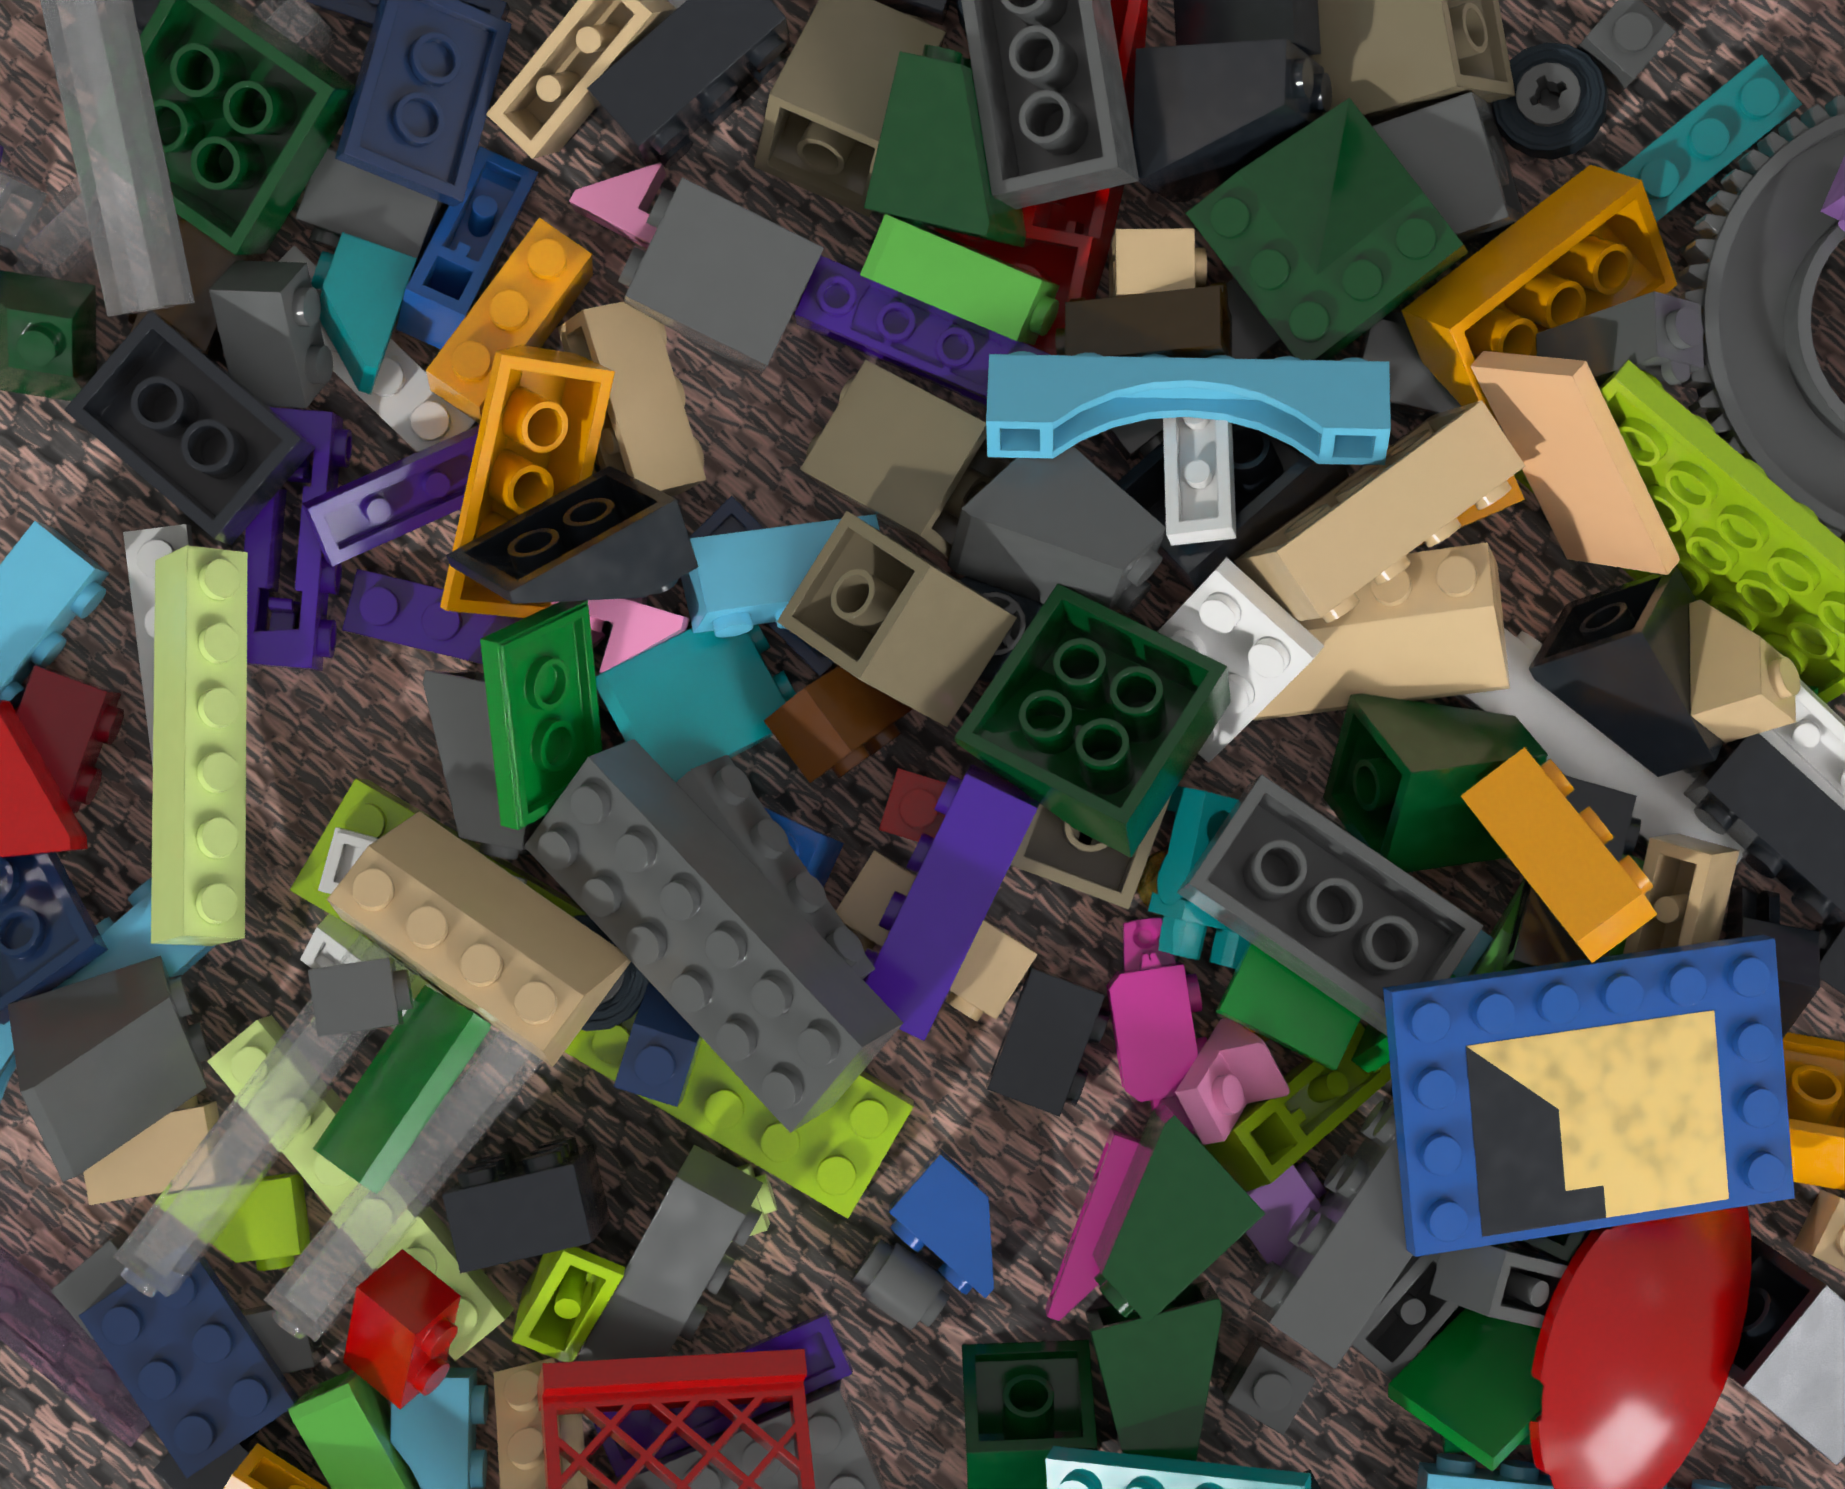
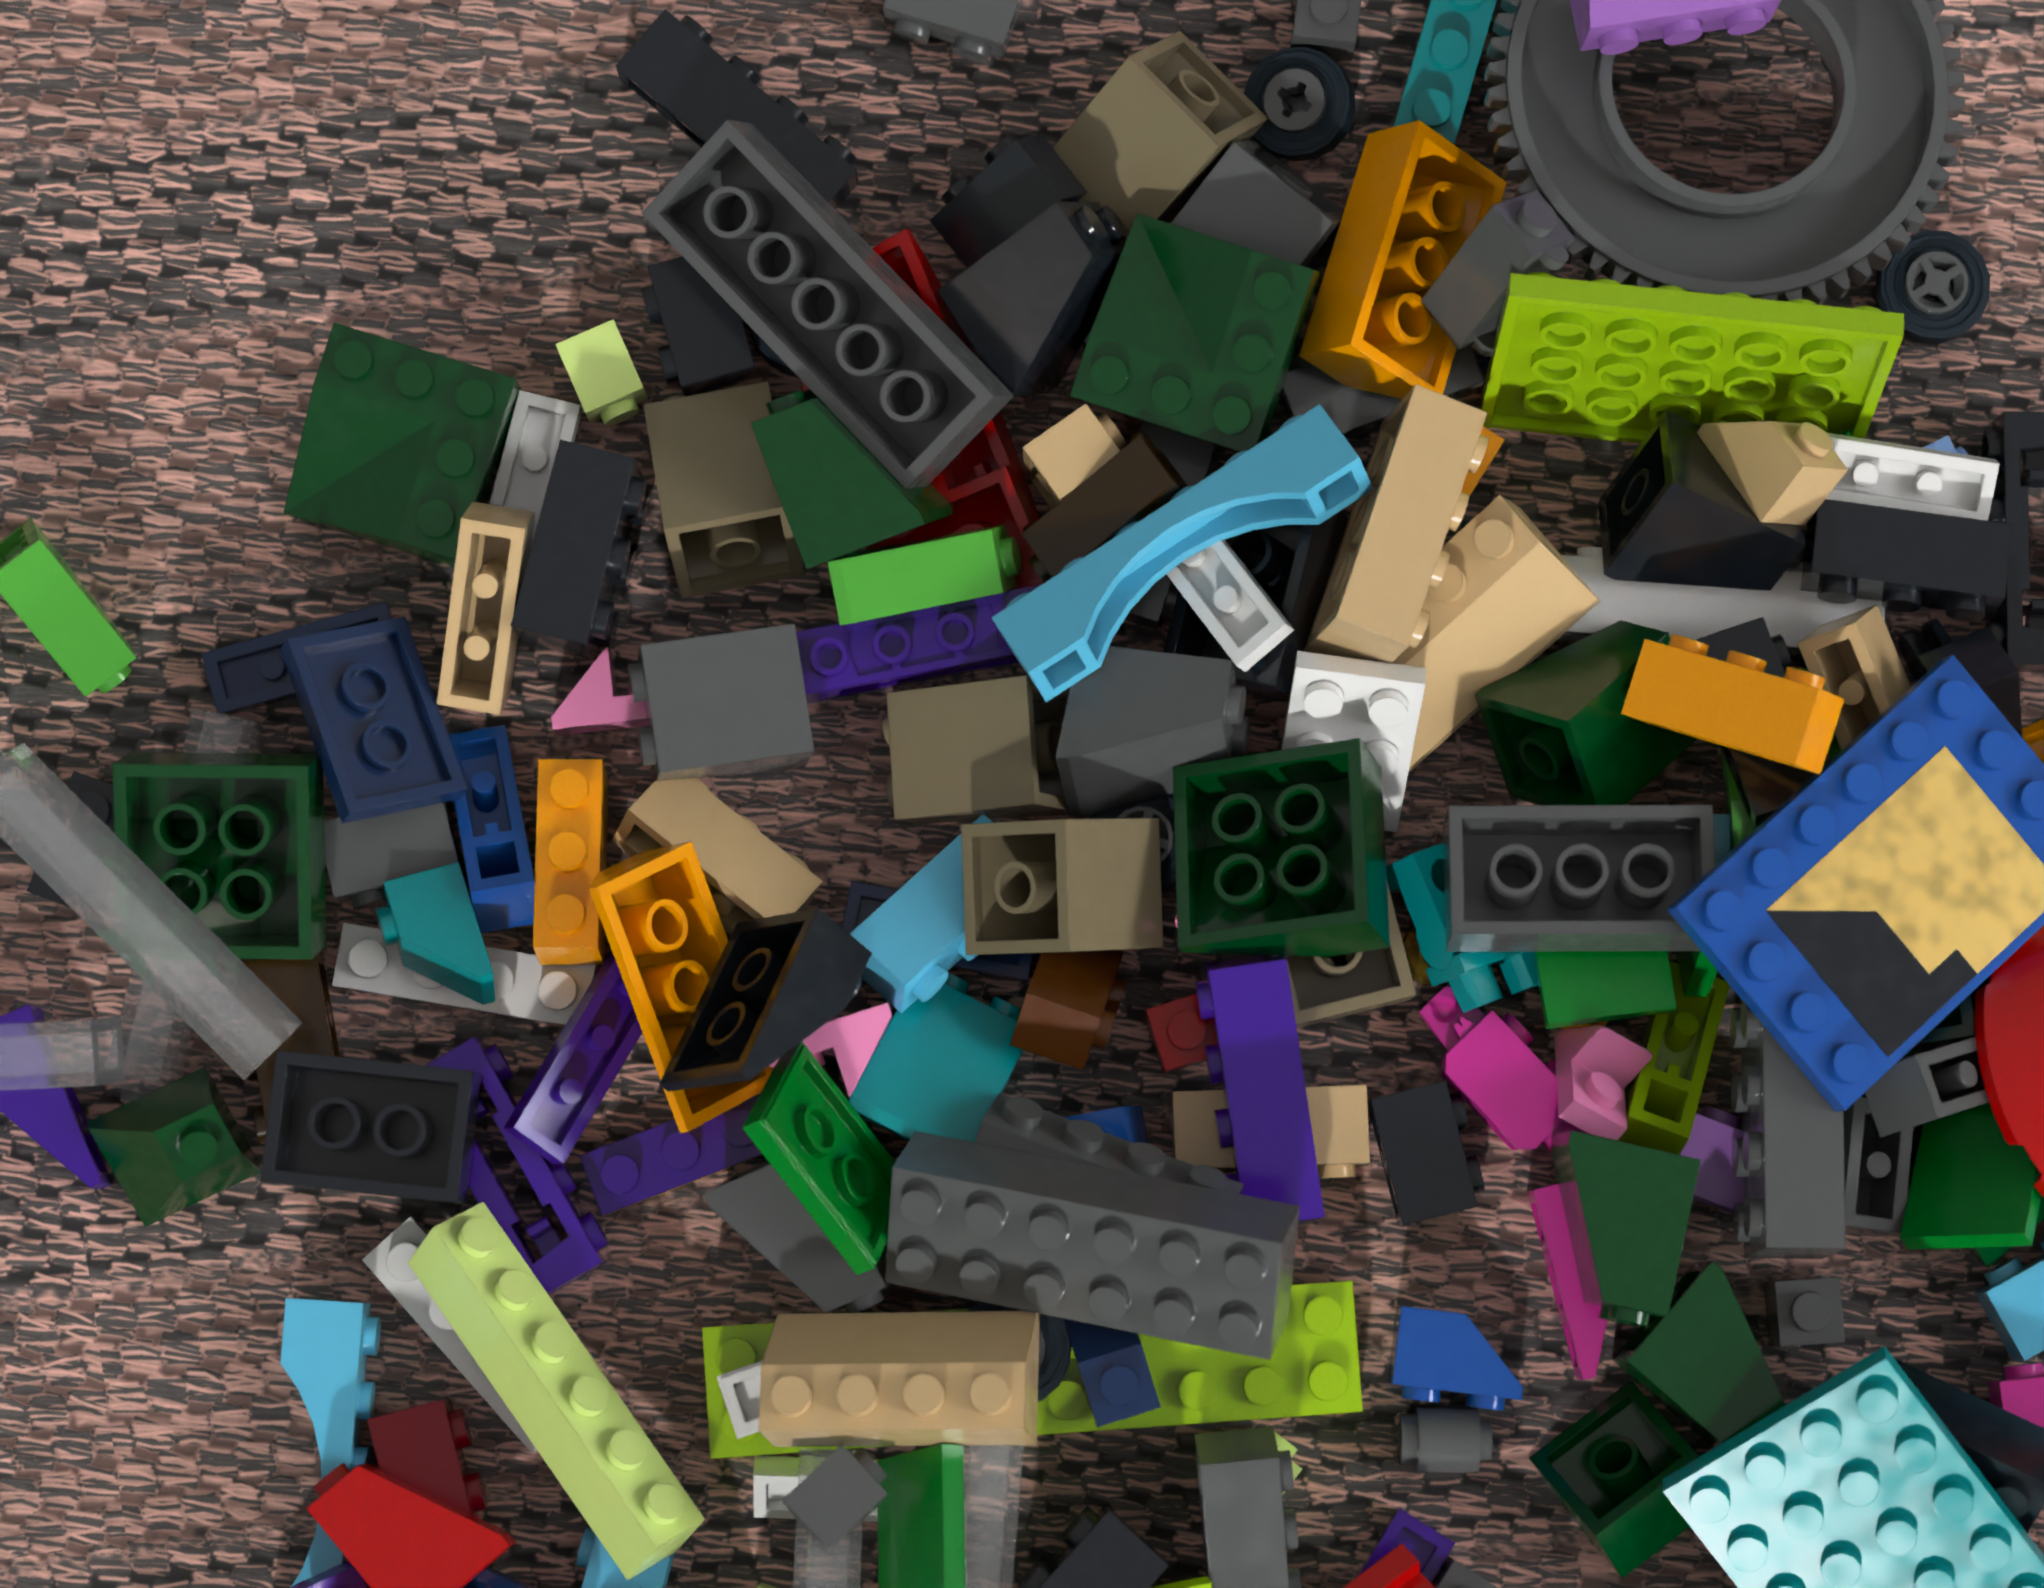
camera: 35 degrees left, 5 degrees down
(272, 331) = (379, 1002): dark grey brick -> none
(1576, 460) = (1525, 381): light nougat tile -> none

